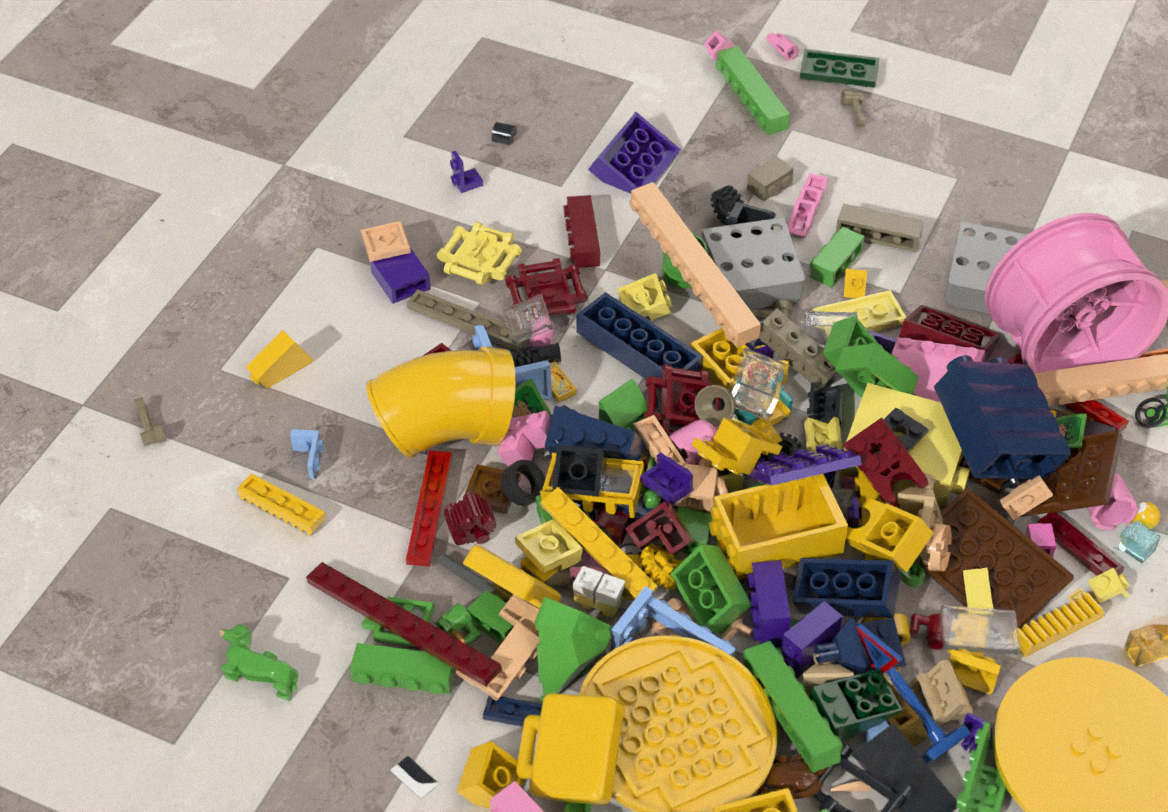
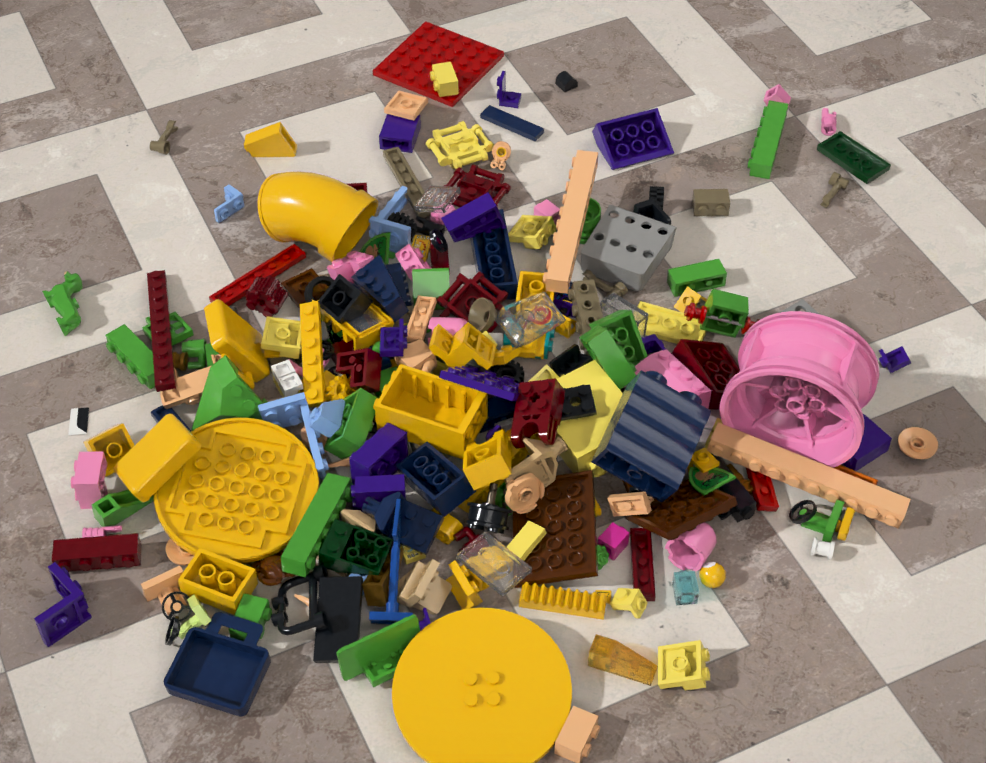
camera: 40 degrees right, 0 degrees up
(281, 504) = (181, 225): yellow gear -> none
(352, 182) = (430, 44): none -> red plate
(391, 193) = (444, 79): none -> light yellow brick
(497, 203) = (512, 123): none -> dark blue tile
(528, 237) = (501, 152): none -> light nougat piece
(577, 398) = (411, 259): none -> bright pink bracket
(583, 231) = (543, 168): dark red brick -> none
(585, 378) = (438, 250): none -> piece
(600, 315) = (473, 218): none -> dark purple wedge
(636, 270) = (547, 208): none -> bright pink brick
(687, 597) = (327, 417): none -> light blue slope
(807, 205) = (715, 235): bright pink slope -> none
(881, 227) = (749, 275): brick -> none
(909, 273) = (722, 313): none -> bright green brick
(926, 590) = (488, 514): none -> black wheel

